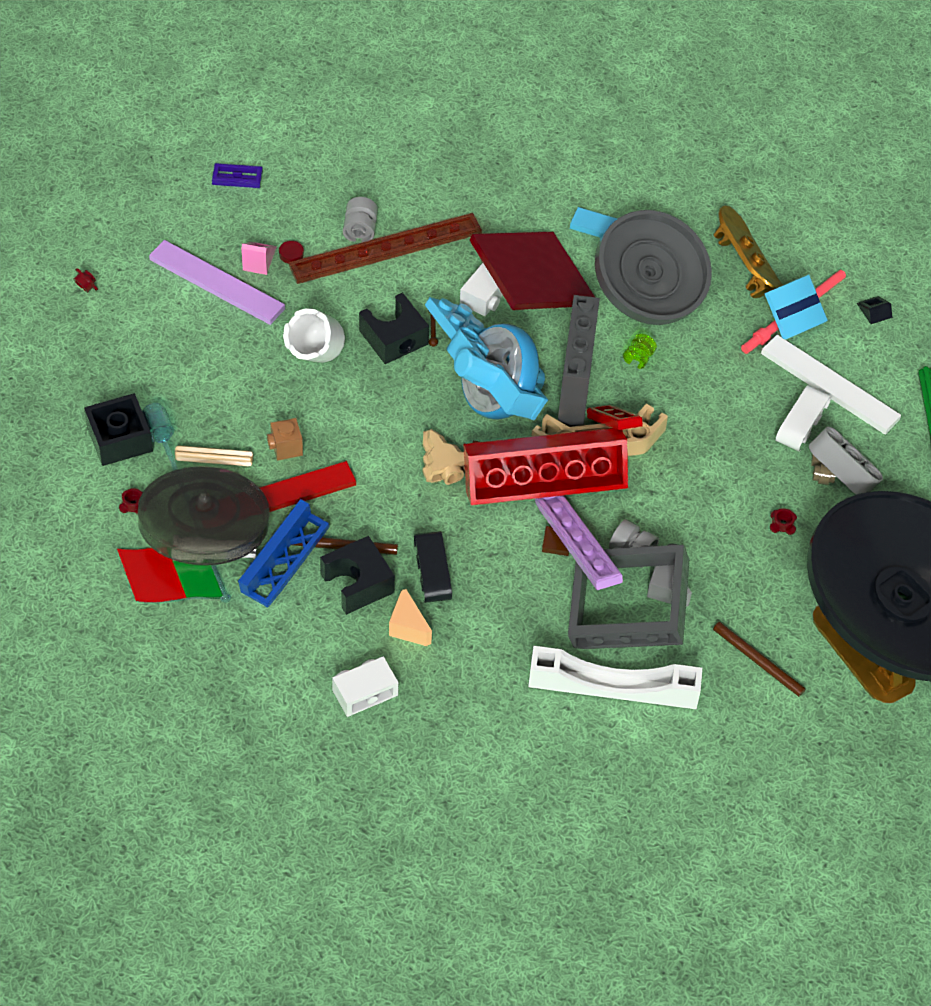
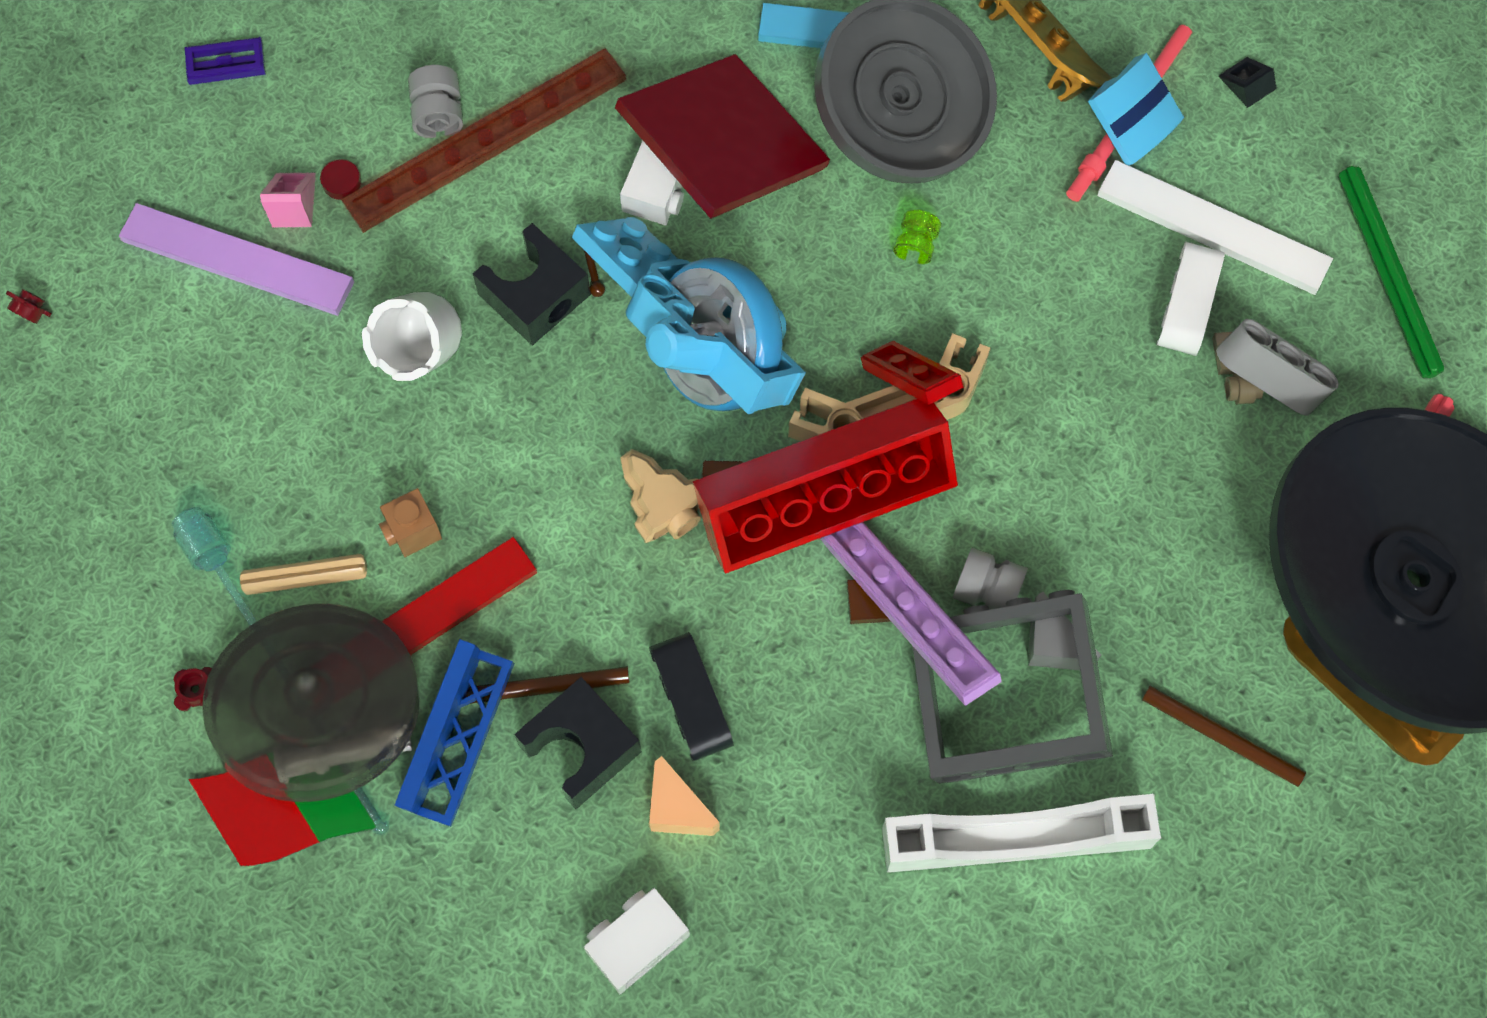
camera: 10 degrees left, 15 degrees up
(118, 429) = (140, 569): black brick -> none
(578, 360) = (838, 295): dark grey window -> none
(783, 515) = (1202, 474): dark red plate -> none

